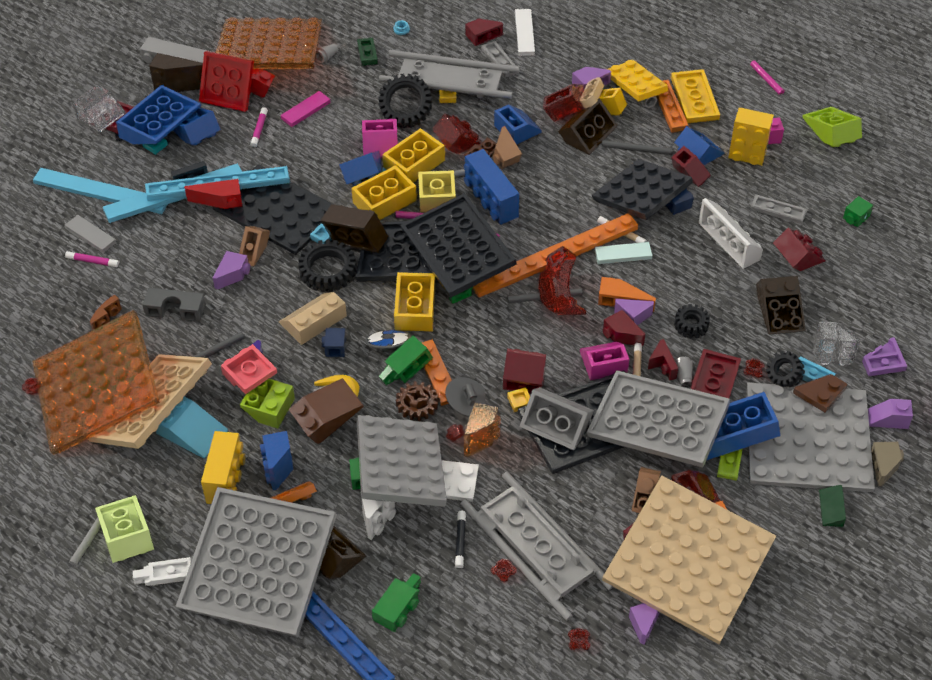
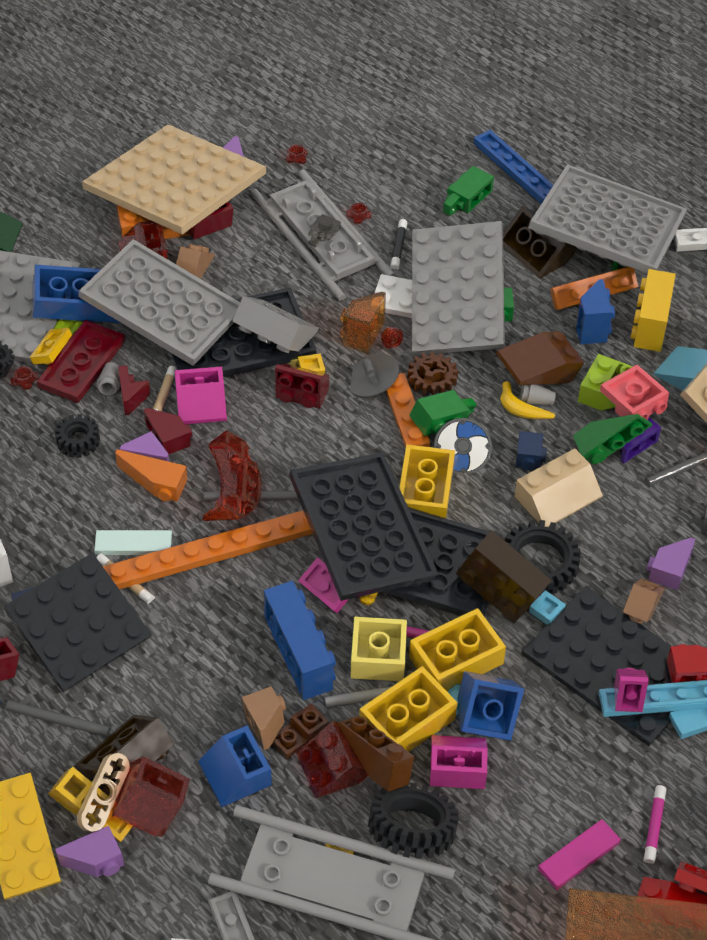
camera: 175 degrees left, 0 degrees up
(269, 161) = (630, 689): none -> dark pink slope
(272, 344) = (606, 436): none -> green slope
(431, 124) = (379, 755): none -> reddish brown slope
(533, 527) = (323, 227): none -> clear smoke plate
(742, 385) = (50, 346): none -> yellow plate

